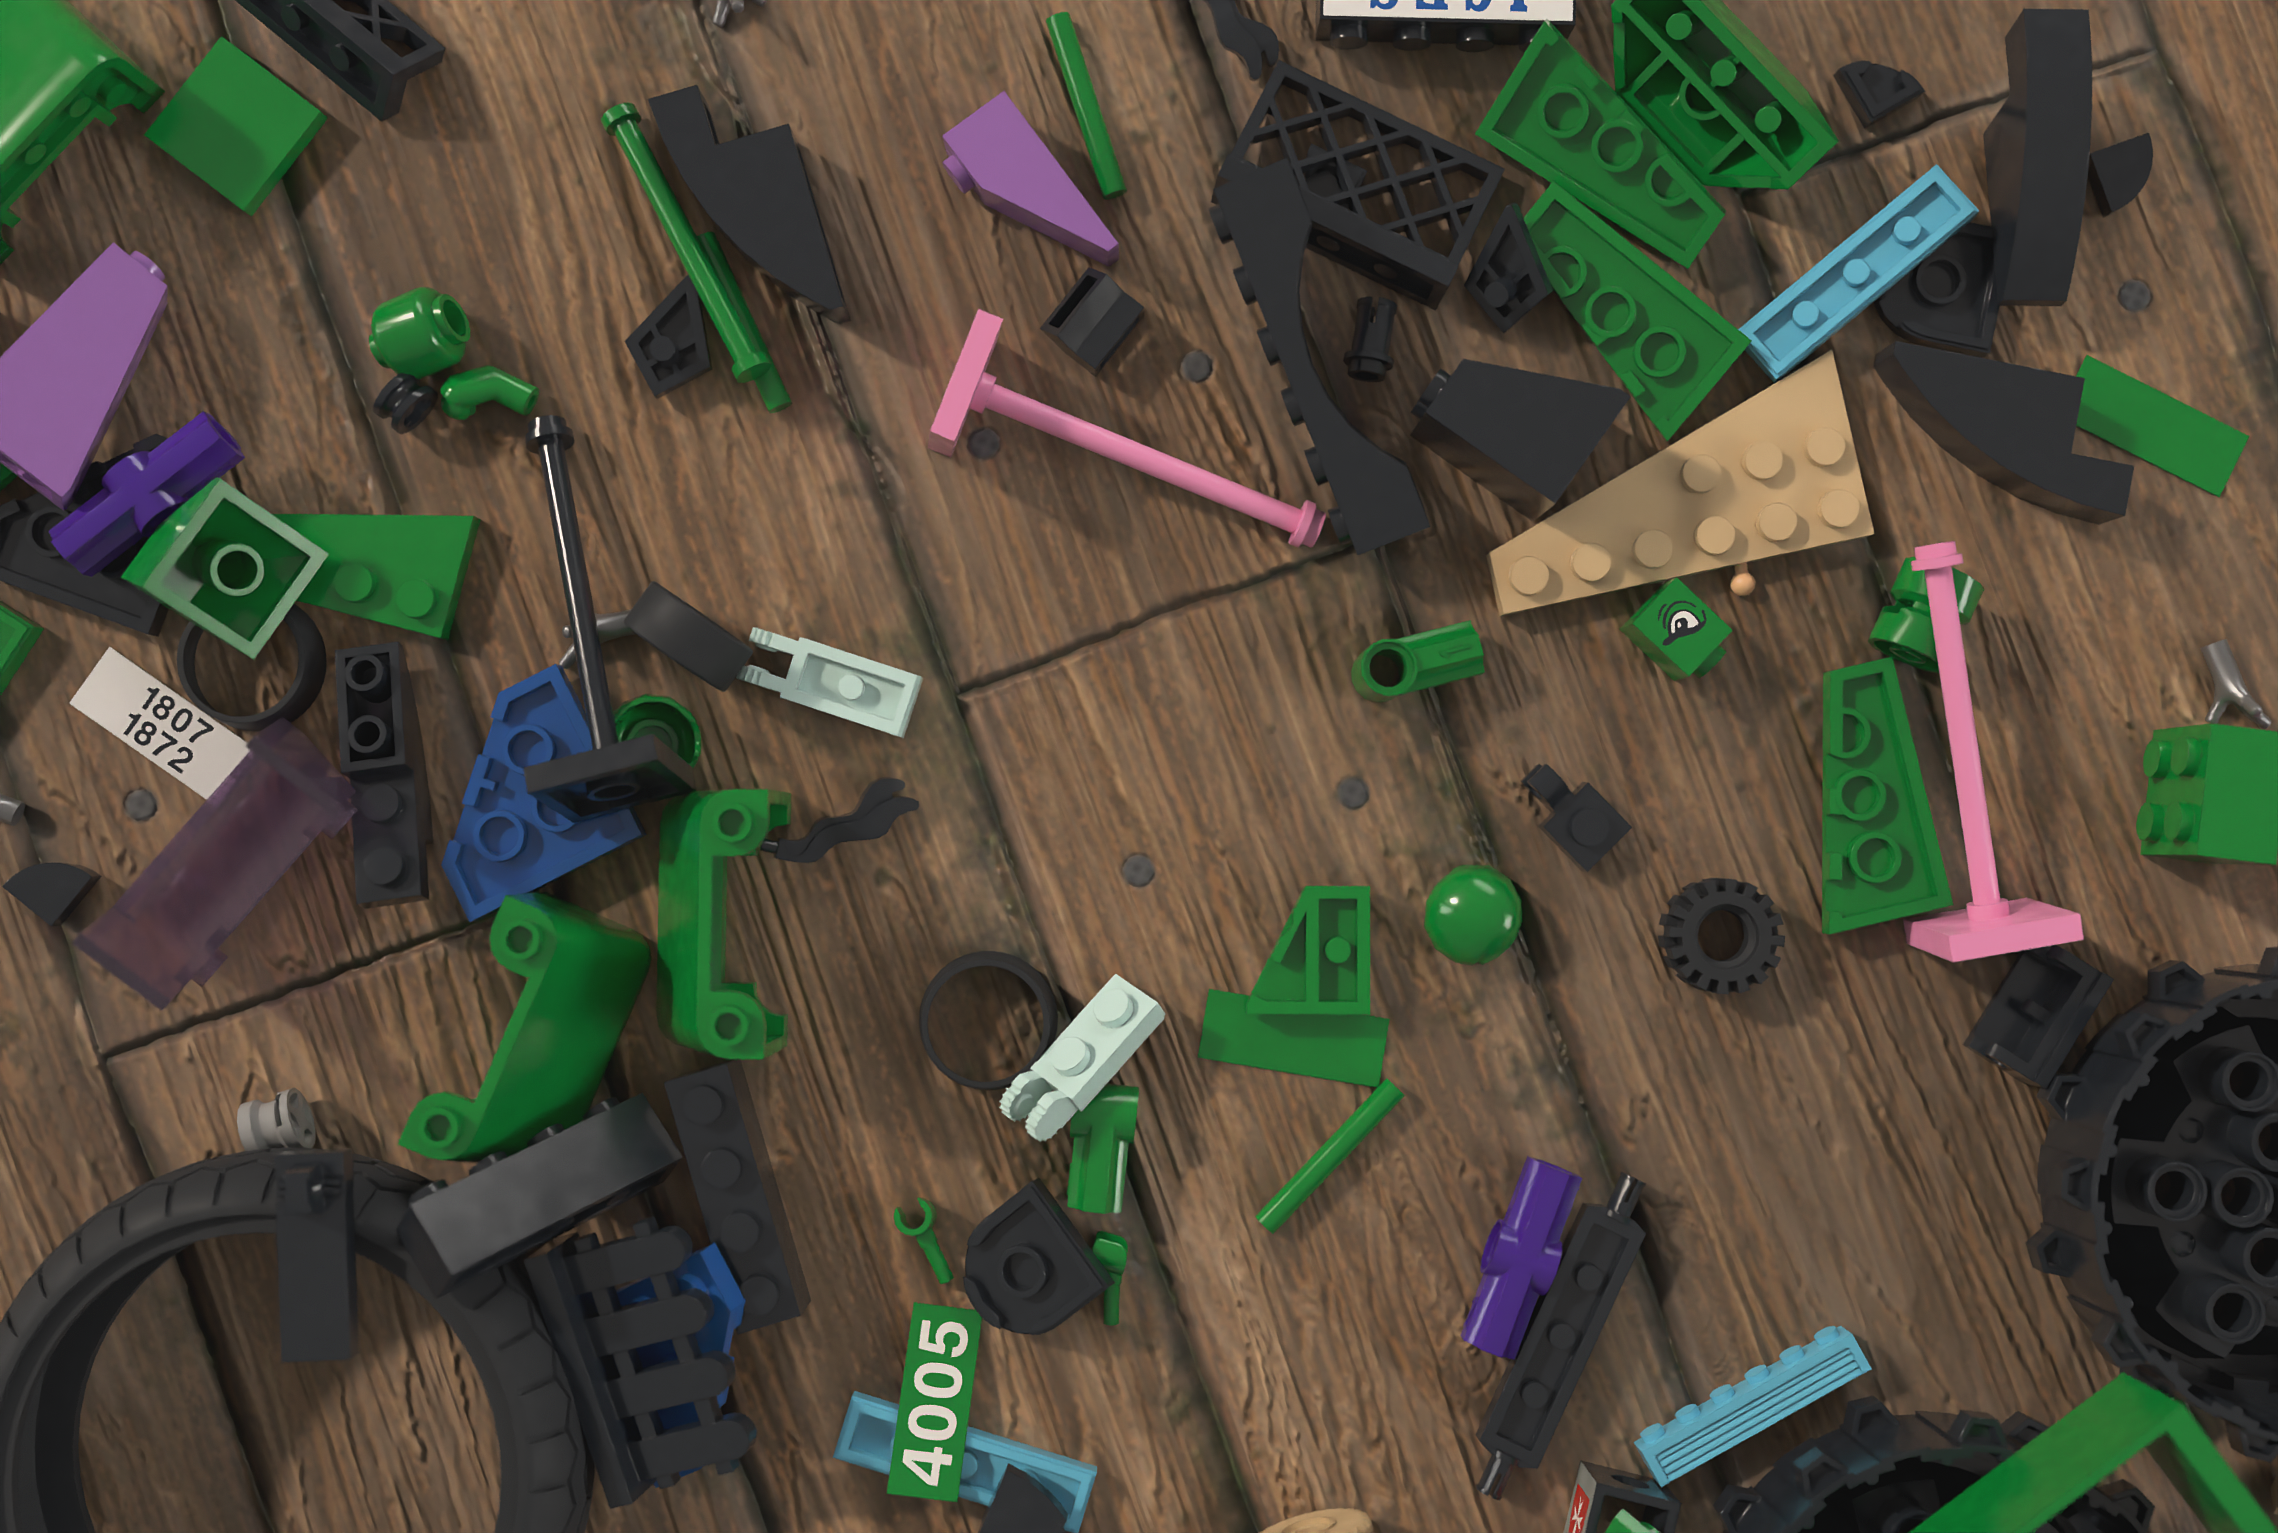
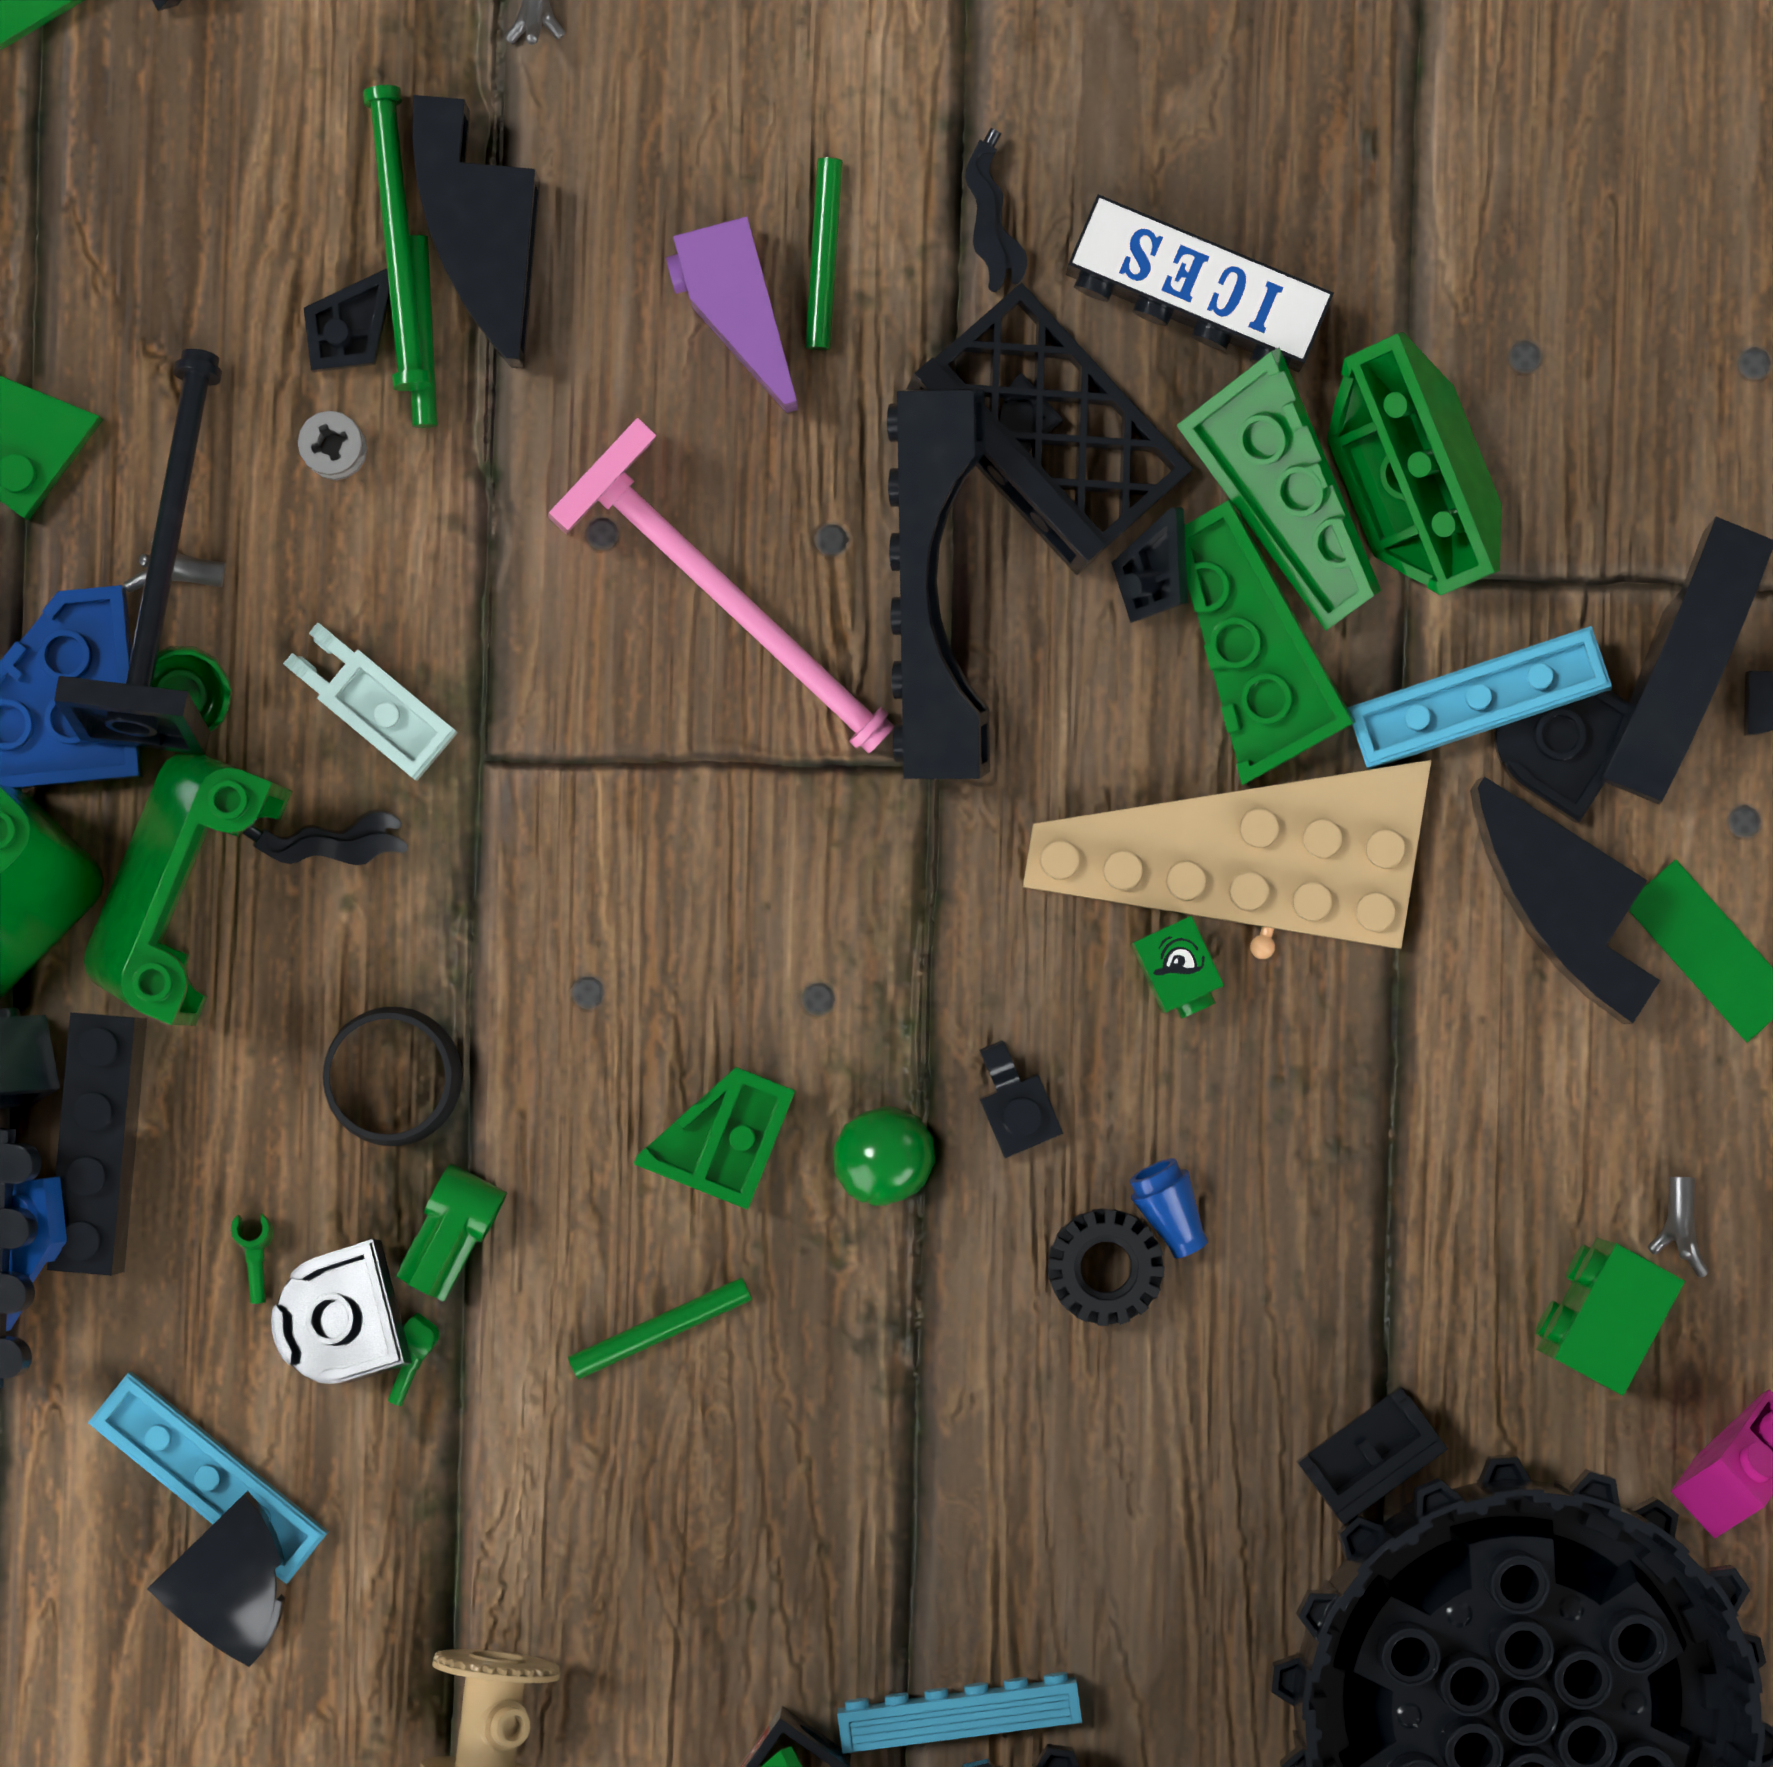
camera: 30 degrees right, 0 degrees up
(405, 402) = (77, 284): black bush -> none
(419, 332) = (115, 226): green head -> none
(482, 384) = (155, 296): green arm -> none
(688, 636) = (254, 609): black tyre -> none
(712, 466) = (339, 455): none -> light grey wheel
(935, 1402) = (202, 1409): green sticker -> none
(1082, 1058) = (464, 1144): light aqua hinge -> none
(1093, 320) = (748, 459): black piece -> none
(1302, 1044) = (680, 1216): green sticker -> none
(1371, 340) = (1002, 581): black pin -> none
(1422, 661) = (931, 900): green piece -> none
(1515, 429) = (1095, 719): black slope -> none
(1520, 1258) = (798, 1491): dark purple piece -> none
(1560, 1336) = (806, 1578): black plate -> none
(1755, 853) = (1169, 1204): none -> blue cone
(1875, 811) = (1296, 1213): green wing -> none
(1876, 89) = (1576, 530): black tile -> none
(1907, 627) = (1414, 1043): green wheel -> none
(1990, 922) = (1353, 1349): bright pink tile -> none

